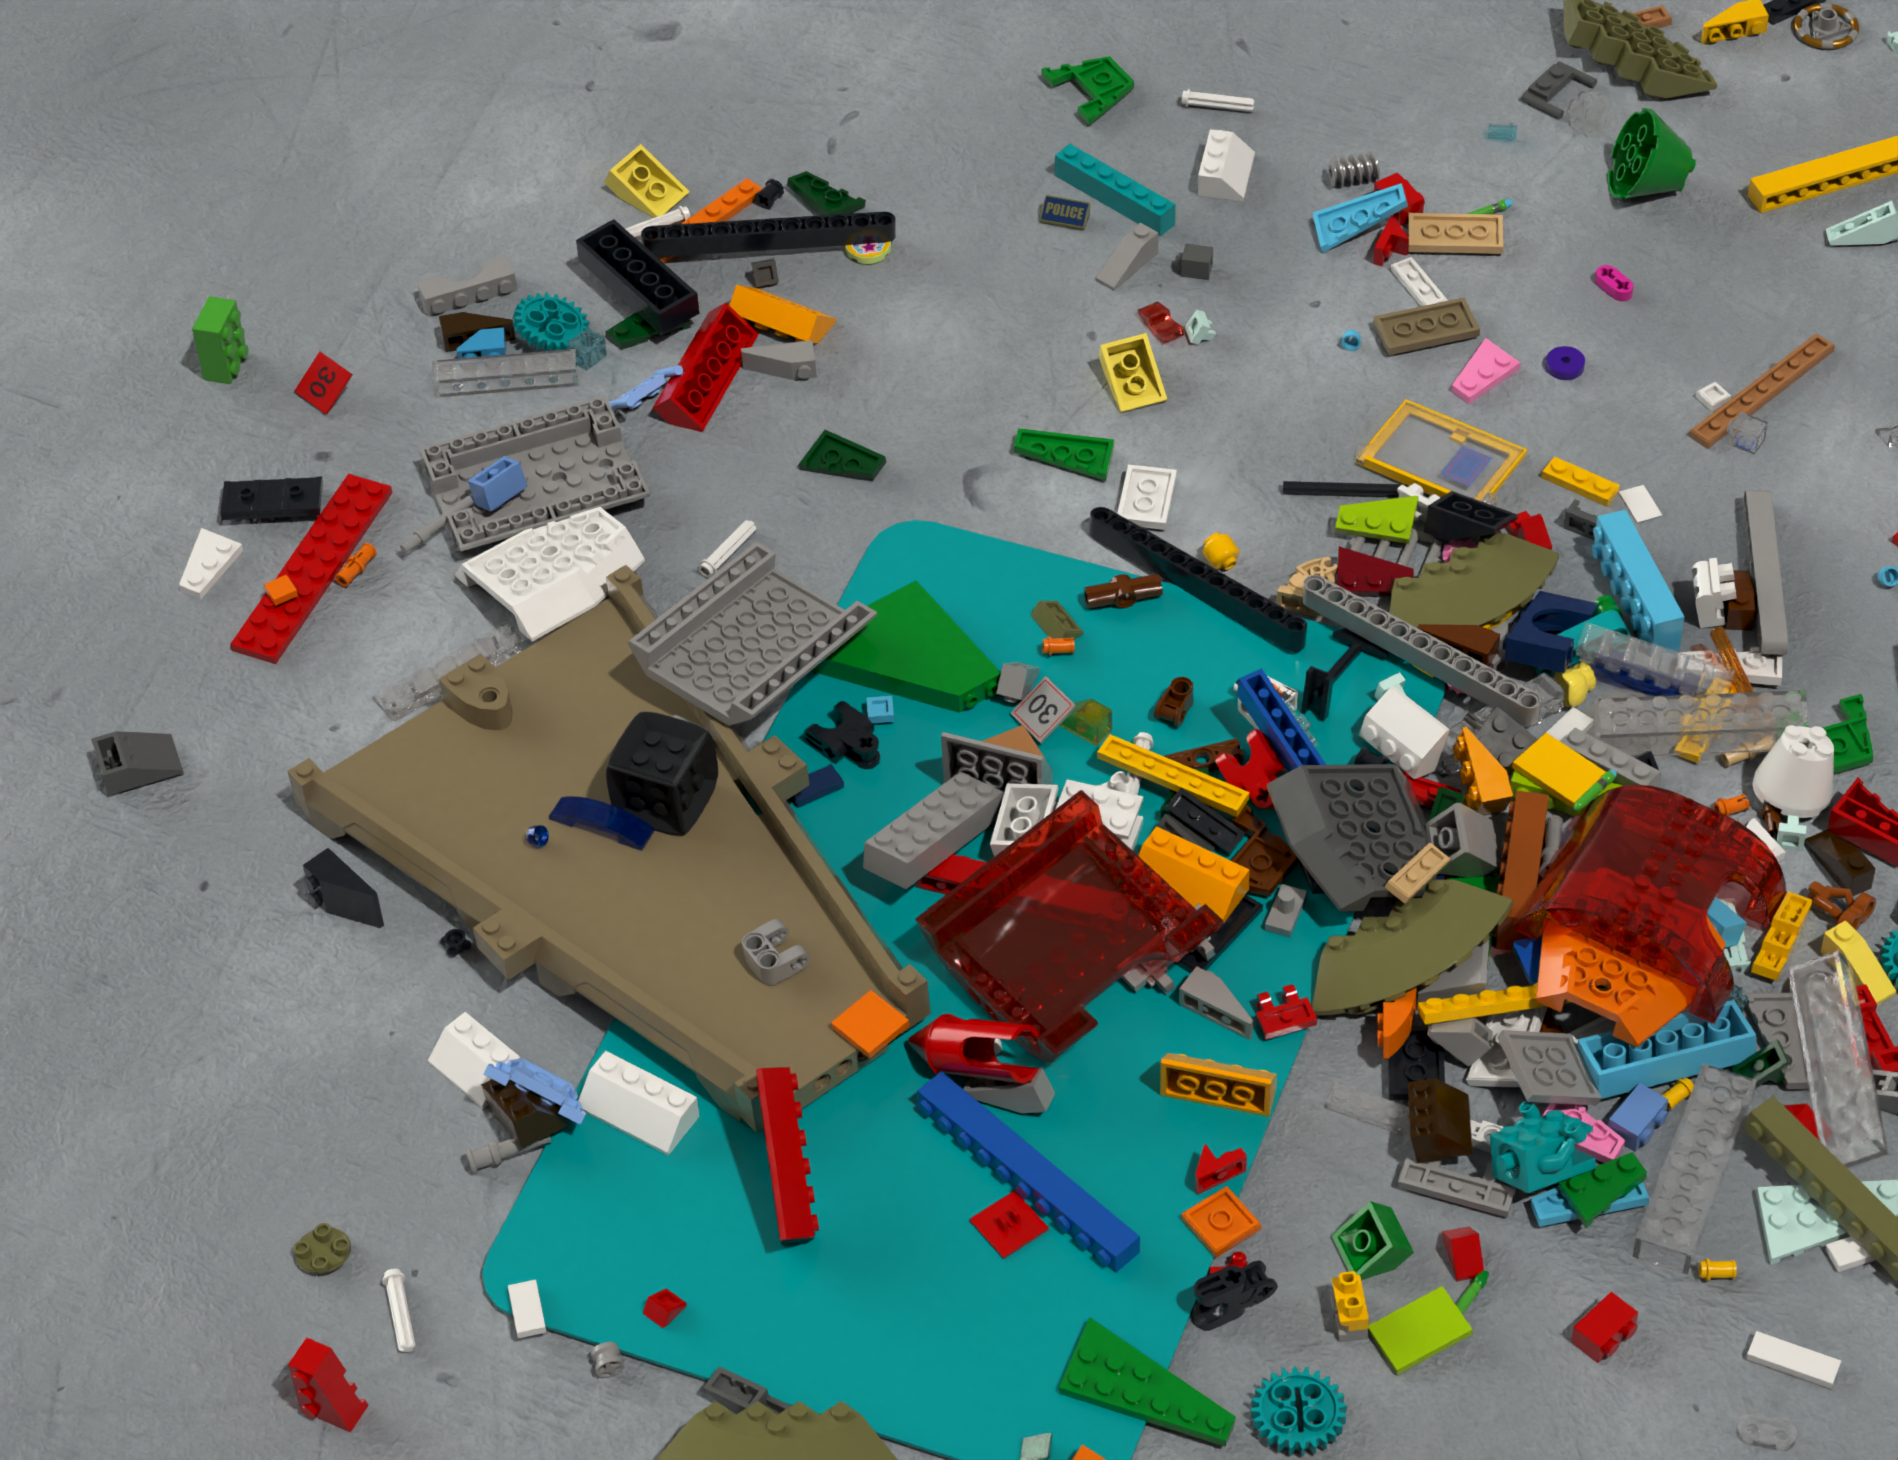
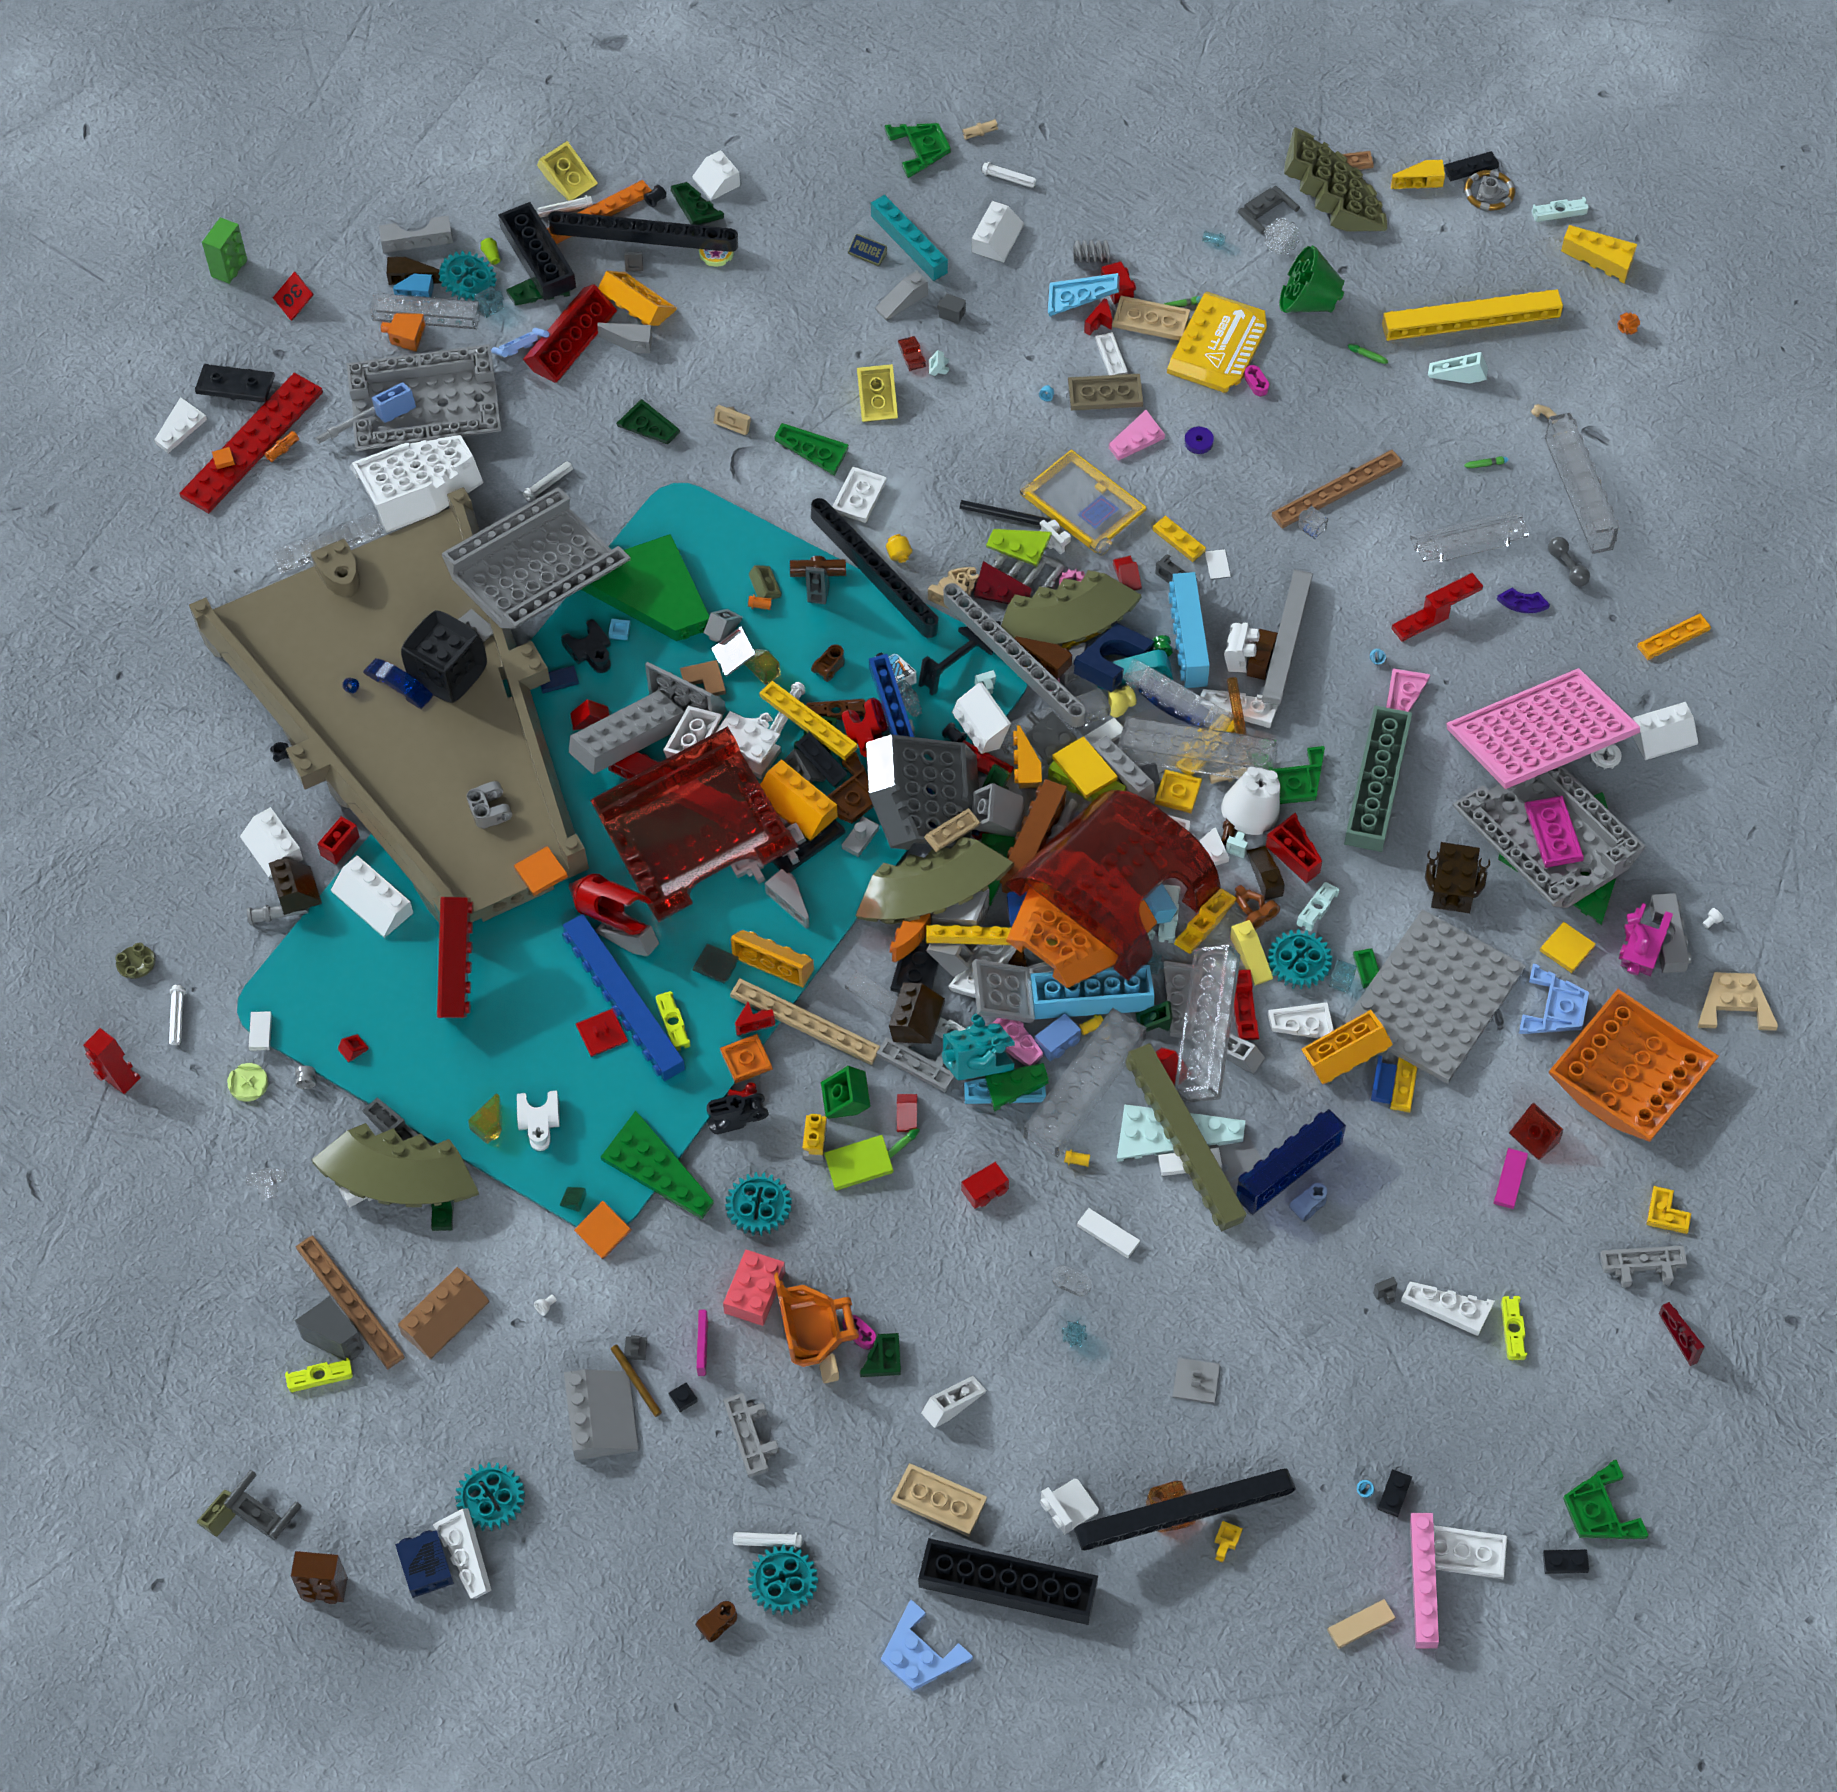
camera: 10 degrees right, 10 degrees up
(135, 759) = (92, 571): dark grey slope -> none
(341, 890) = (207, 699): black slope -> none
(484, 400) = (405, 330): none -> orange torso
(525, 1382) = (247, 1082): none -> yellowish green tile
(536, 1079) = (308, 868): light blue wing -> none
(570, 287) = (490, 250): none -> lime cone
(570, 1039) = (338, 840): none -> red brick
(843, 158) = (717, 175): none -> white slope
(868, 821) = (588, 714): none -> red slope
(885, 1369) = (487, 1120): none -> clear yellow slope
(951, 435) = (732, 419): none -> tan tile
(956, 1354) = (539, 1119): none -> white piece
(1093, 1177) = (669, 1010): none -> neon yellow piece
(1132, 607) = (817, 585): none -> dark grey slope
(1141, 1105) = (716, 963): none -> clear smoke piece
(1164, 56) = (980, 129): none -> tan pin
(1285, 1018) = (834, 917): red plate -> none
(1290, 1159) = (806, 1021): none -> tan tile
(1464, 517) = (1080, 555): black slope -> none
(1551, 248) = (1218, 342): none -> yellow slope
(1606, 779) = (1103, 787): bright green piece -> none
(1690, 779) = (1178, 791): none -> yellow tile
(1713, 396) = (1299, 487): white tile -> none
(1731, 805) = (1202, 815): orange pin -> none
(1743, 230) = (1369, 354): none -> bright green piece

